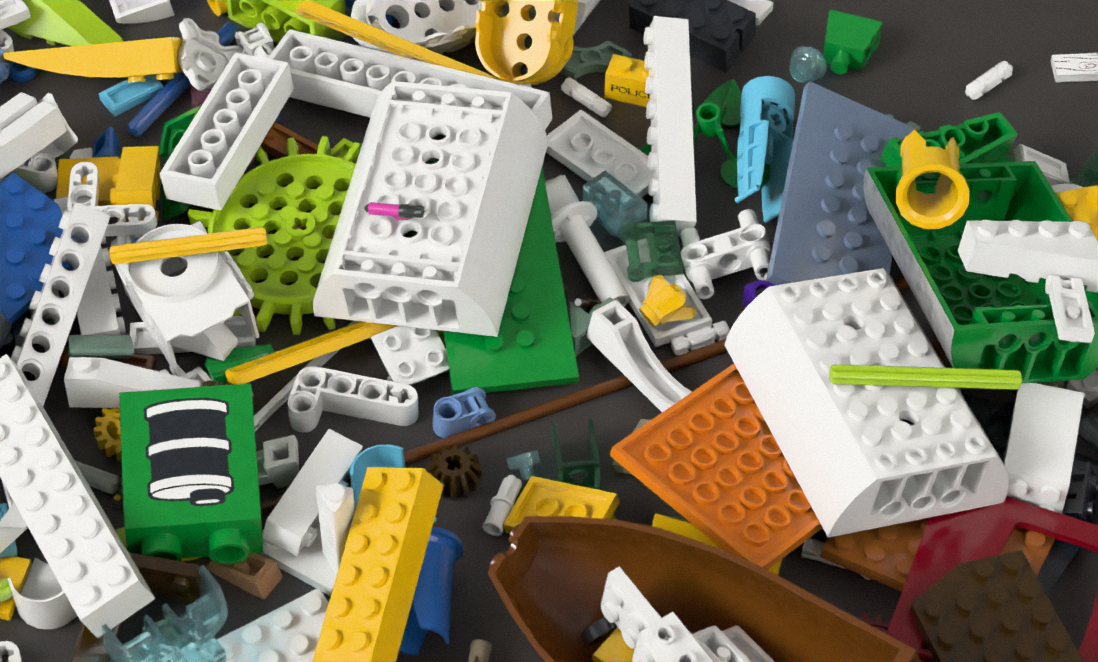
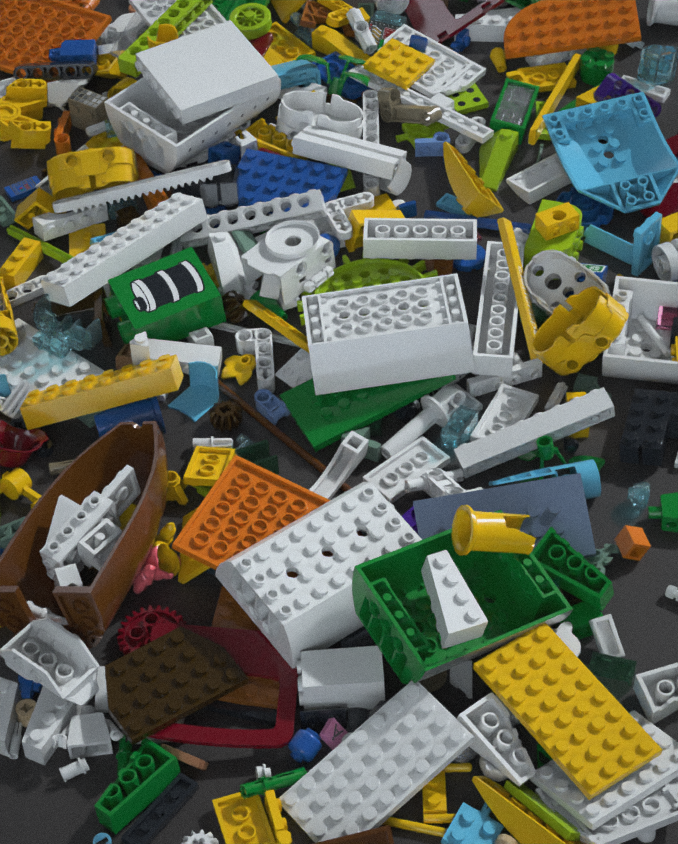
camera: 75 degrees right, 5 degrees down
(188, 245) = (301, 237): yellow axle -> none
(202, 55) = (487, 218): white tile -> none
(360, 430) = (239, 367): none -> yellow plate
(397, 211) = (352, 305): piece -> none
(586, 303) = (380, 439): dark brown hand -> none
(662, 249) = (429, 454): clear green plate -> none
(665, 303) = (384, 467): yellow rock -> none
(889, 95) = (632, 542): none -> orange brick
(925, 376) = (325, 571): lime axle -> none
(1070, 309) = (406, 626): white plate -> none

